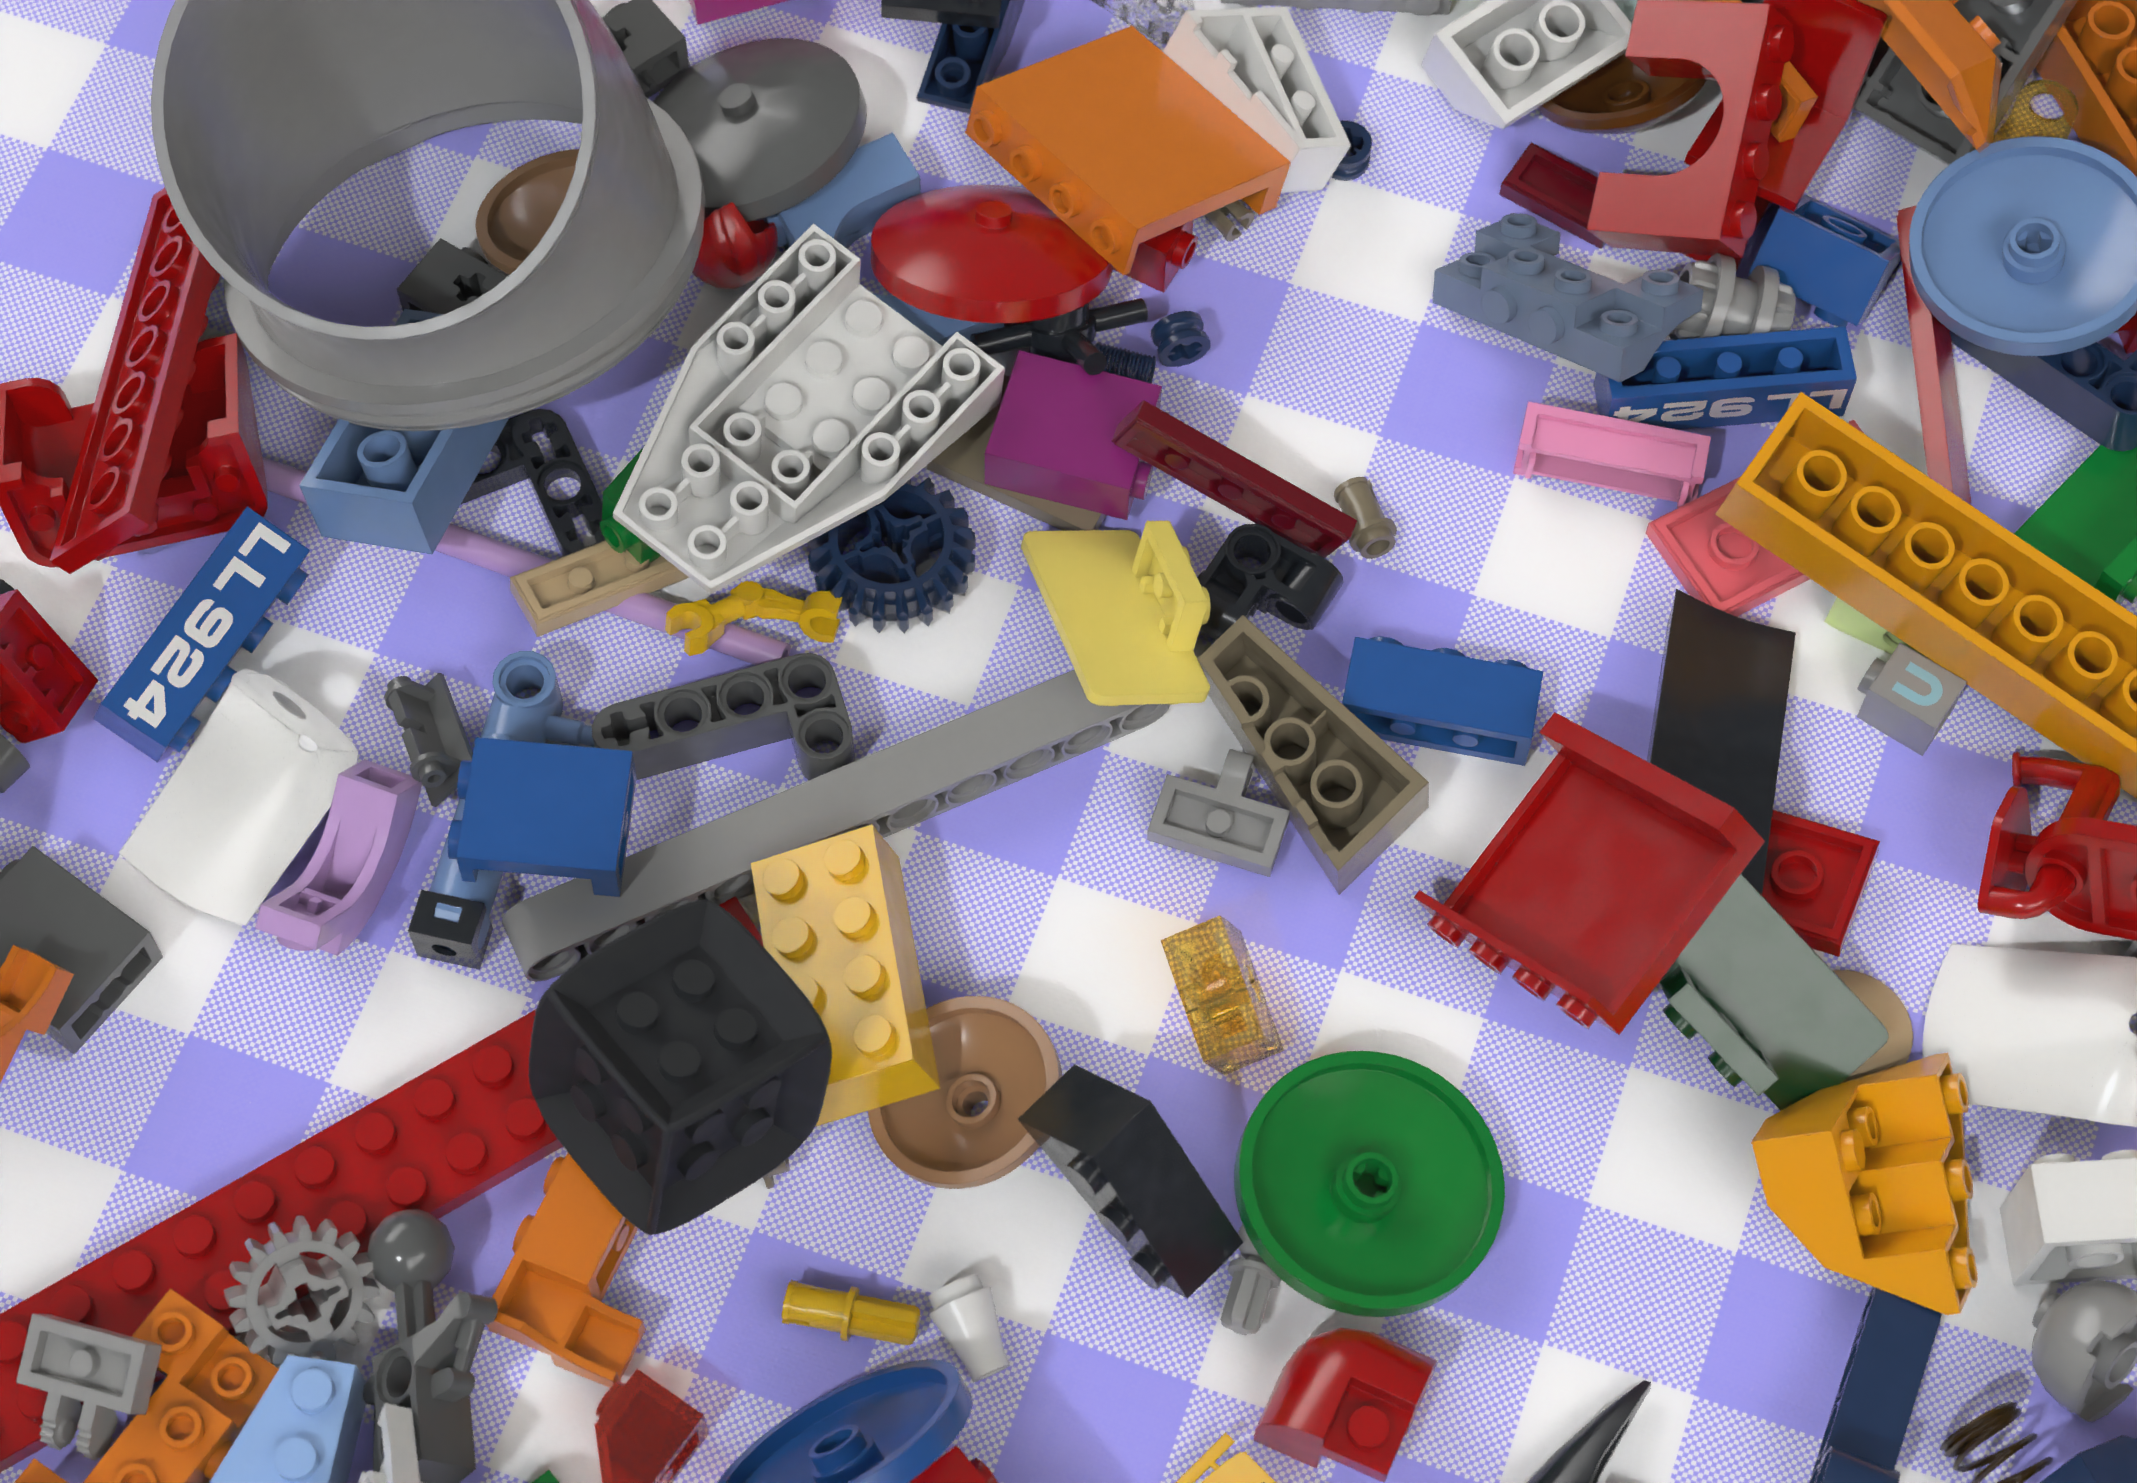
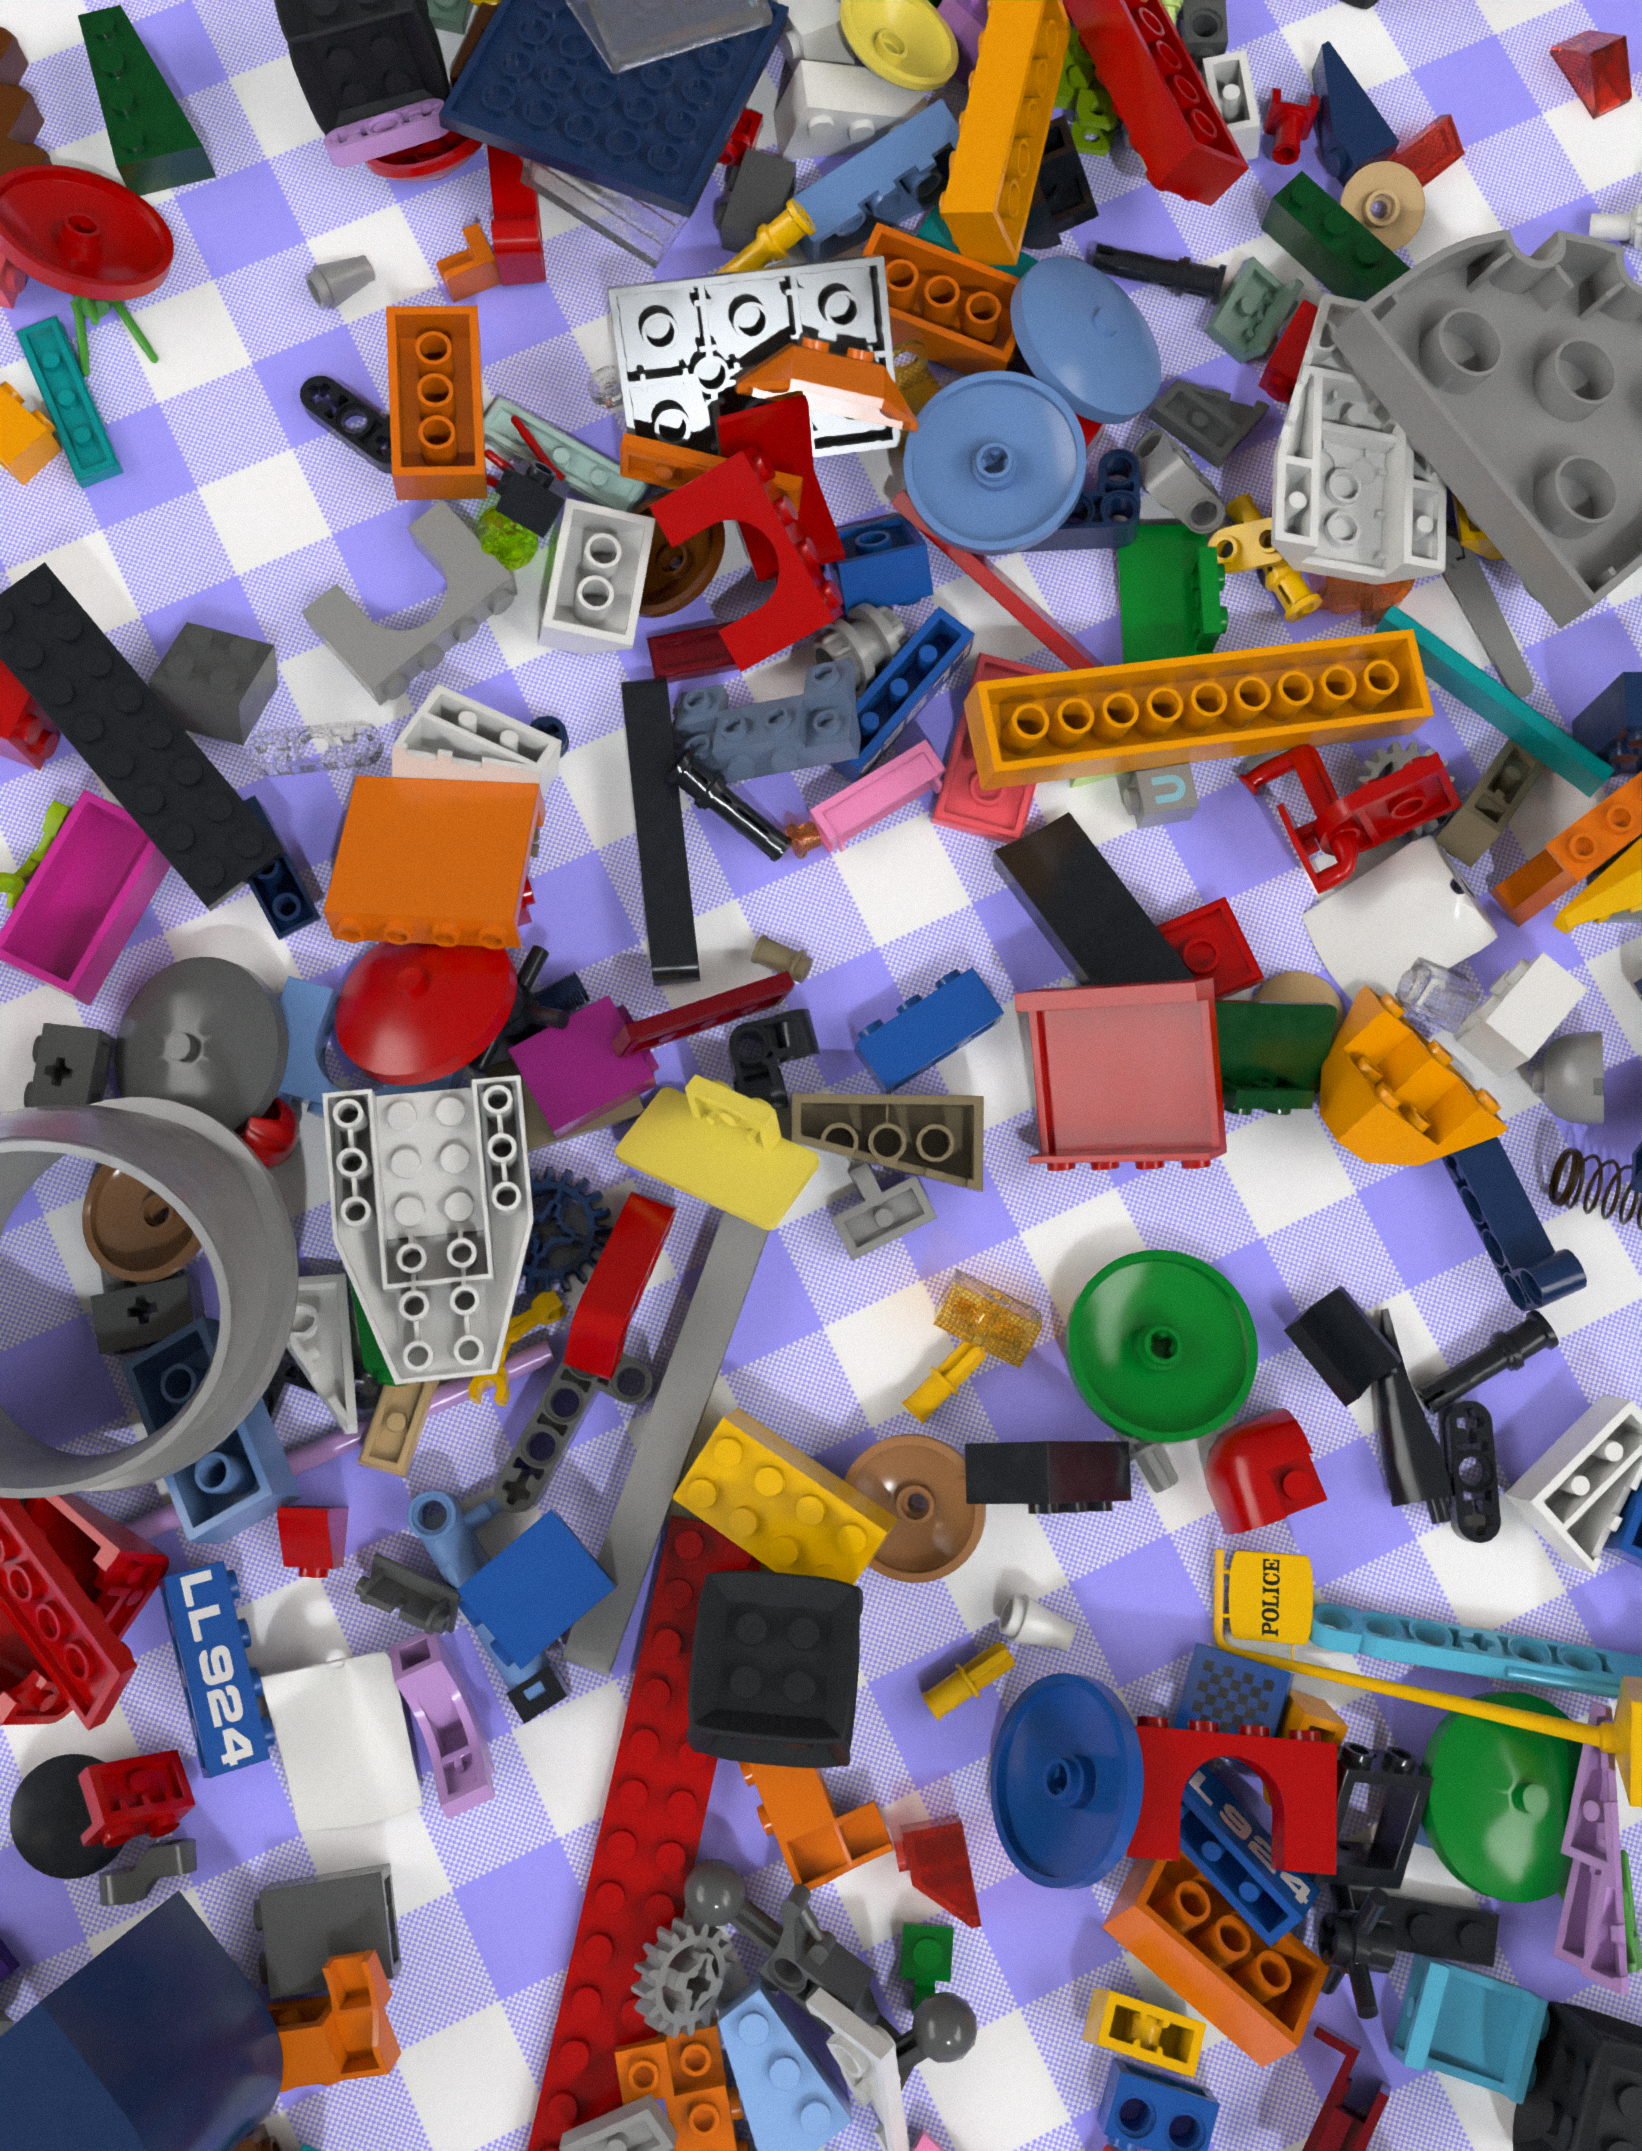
camera: 50 degrees left, 15 degrees up
(405, 603) = (313, 1538): none -> red slope
(593, 442) = (323, 1344): none -> white wing
(899, 629) = (618, 1285): none -> red beam
(1121, 1022) = (944, 1380): none -> yellow axle
(1180, 339) = (576, 946): dark blue bush -> none
(1363, 312) = (660, 833): none -> black beam
(1448, 308) = (711, 792): none -> black pin
(1500, 433) = (804, 838): none -> clear orange piece
(1560, 1365) = (1342, 1345): none -> black panel
(2013, 1122) = (1436, 995): none -> clear brick

